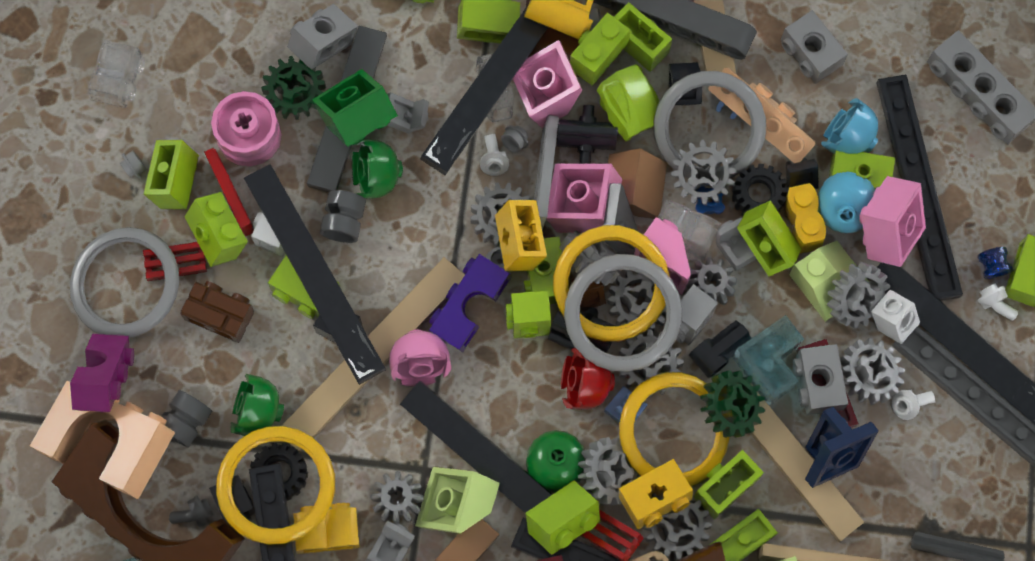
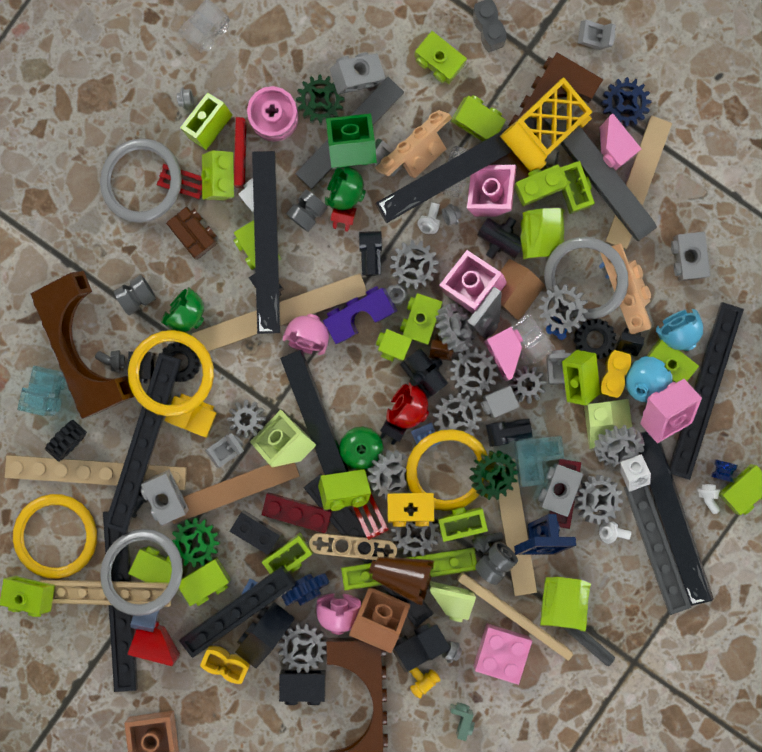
camera: 30 degrees right, 15 degrees up
(105, 370) = (102, 232): magenta arch -> none
(139, 443) = (98, 297): light nougat arch -> none
(392, 200) = (345, 216): none -> red tile
(437, 85) = (418, 149): none -> light nougat bracket
(440, 221) = (370, 246): none -> black piece
(520, 235) = (414, 291): yellow brick -> none
(545, 166) = (456, 252): light grey tile -> none
(583, 417) = (392, 431): none -> black tile
(597, 235) = (463, 320): yellow wedge -> none
(636, 264) = (460, 345): light grey wedge -> none
(680, 70) = (588, 229): black brick -> none
(764, 495) = (482, 541): none -> dark grey plate
(796, 509) = (497, 563): none -> dark grey wheel
(904, 514) = (565, 603): none -> lime slope

